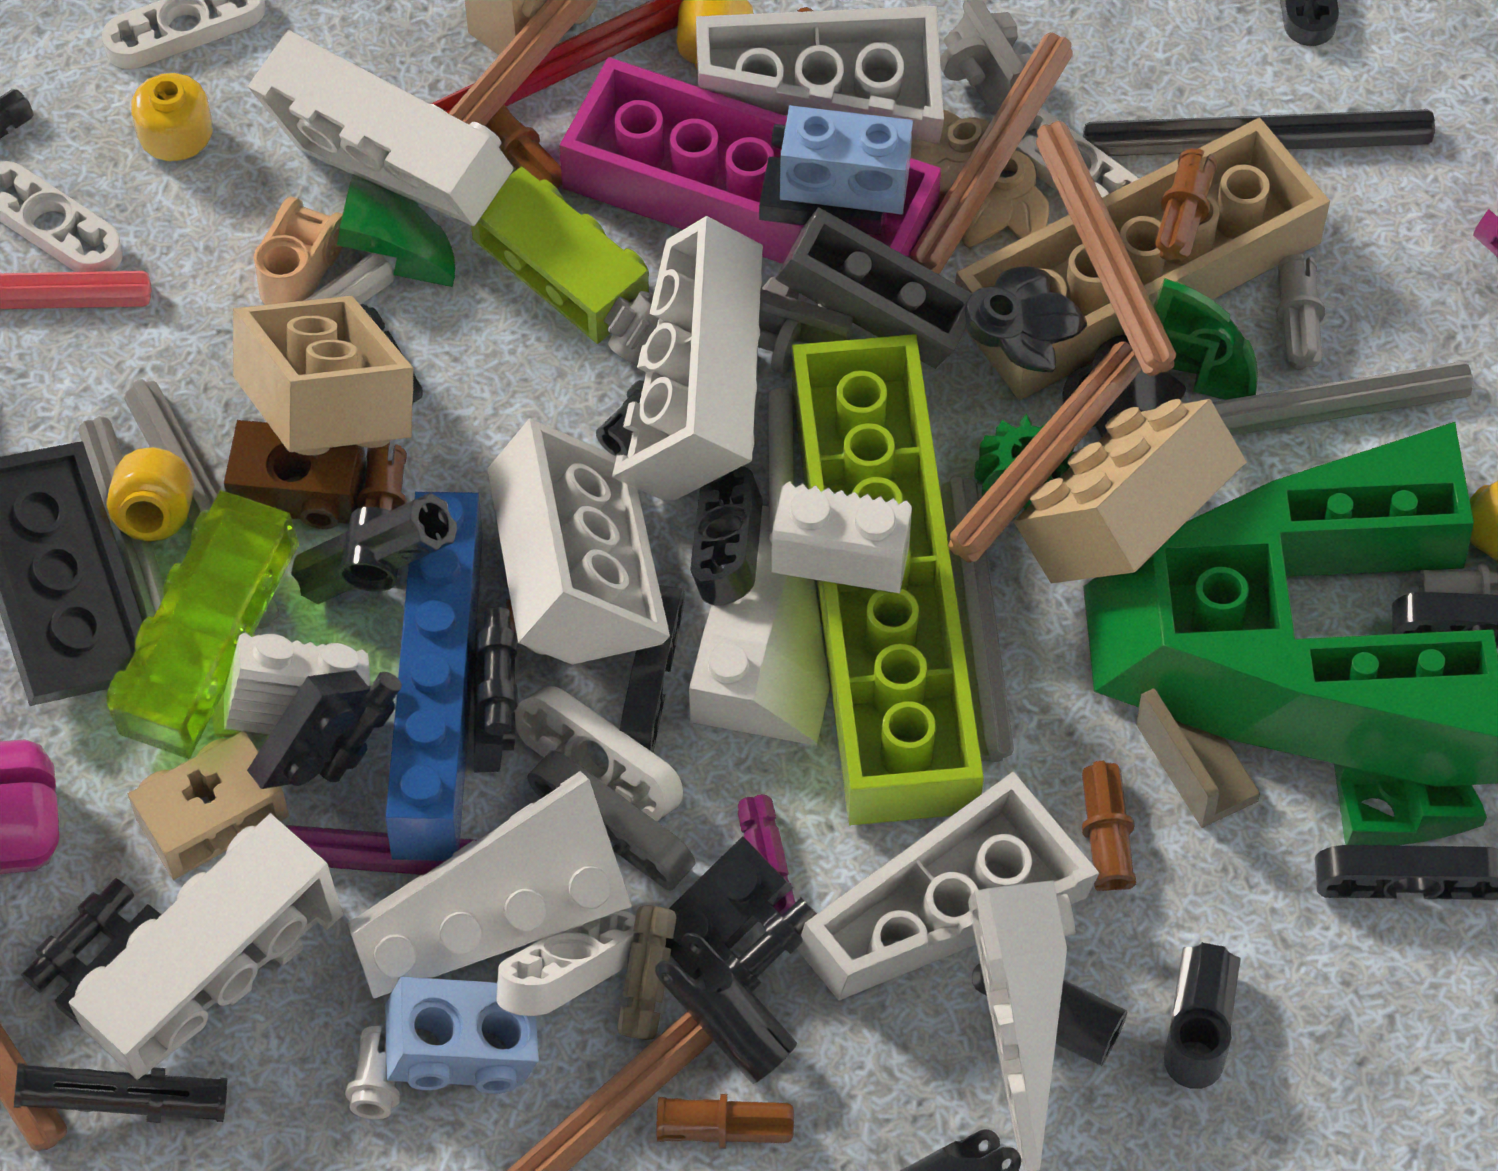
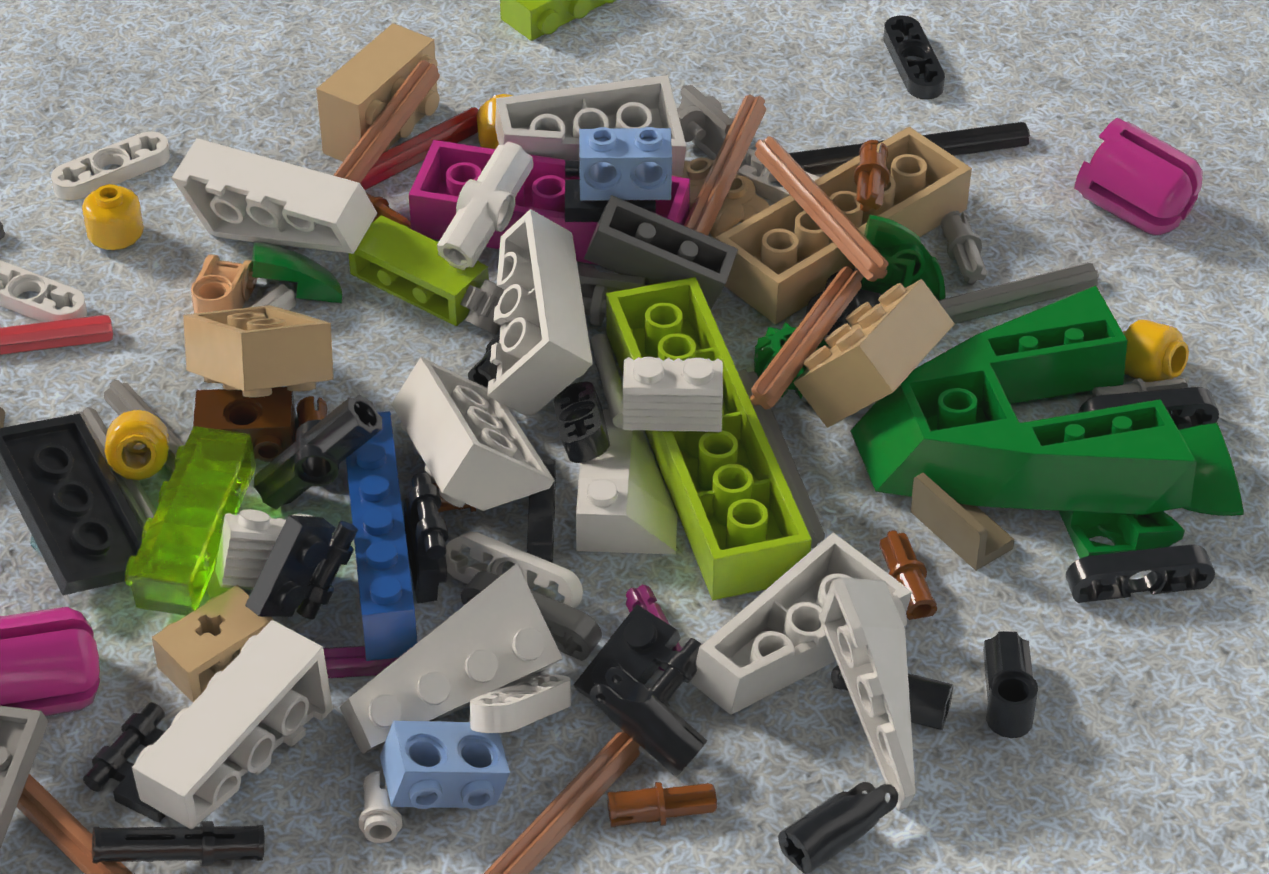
camera: 10 degrees left, 15 degrees down
(641, 981) = (580, 709): dark tan axle -> none
(655, 185) = (485, 206): none -> white piece
(1023, 318) = (771, 254): black plate -> none

